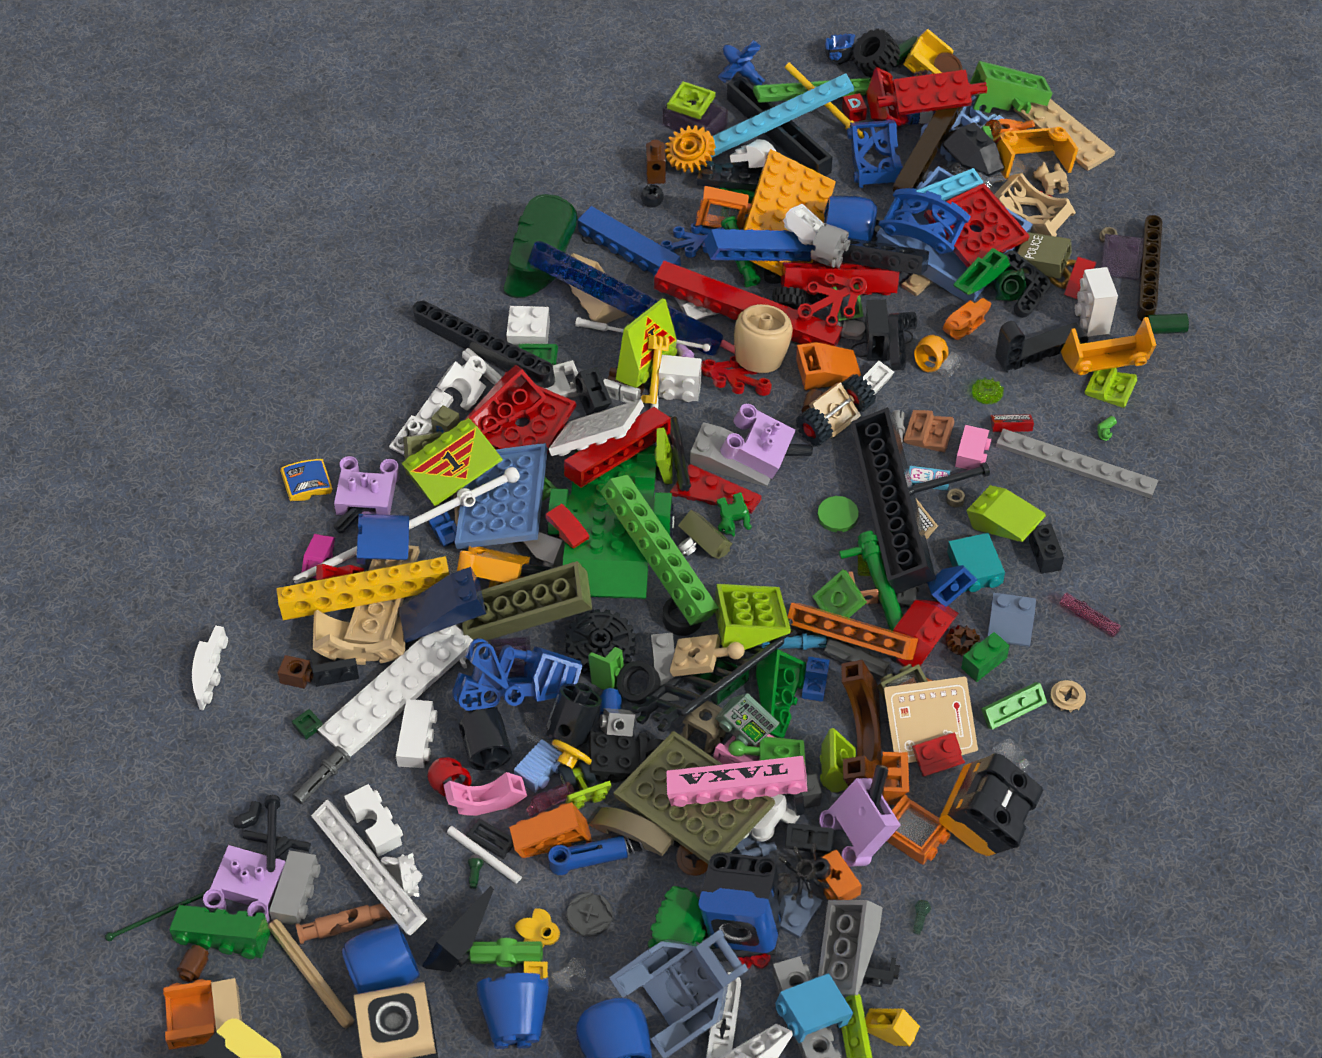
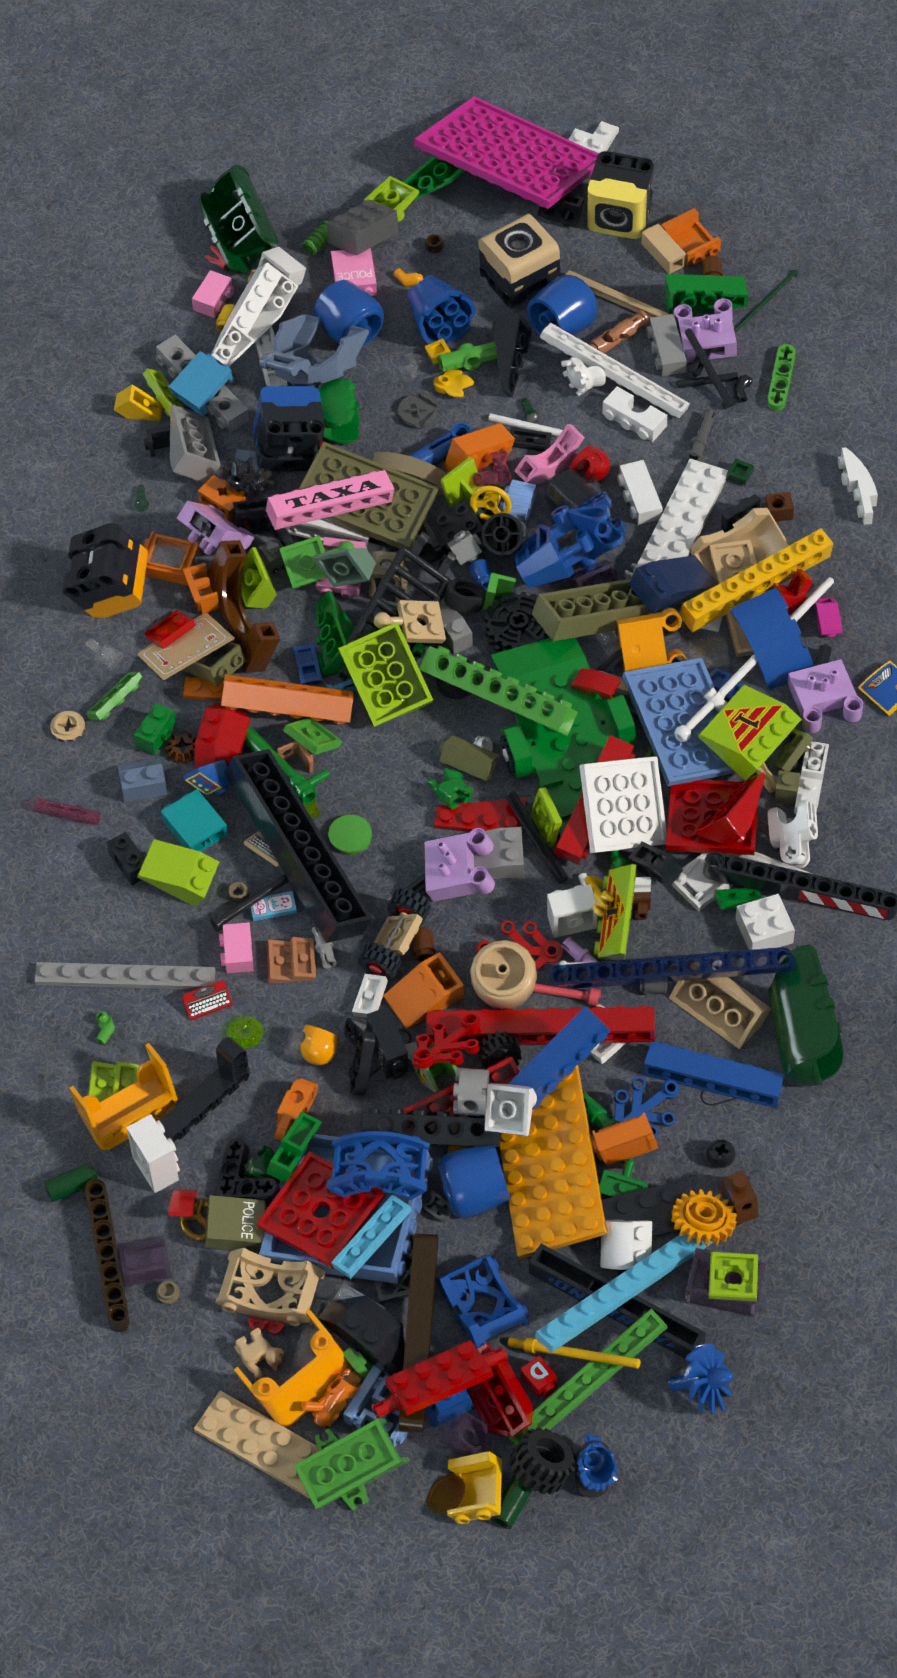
camera: 160 degrees right, 5 degrees up
(203, 814) = (778, 377): none -> bright green beam

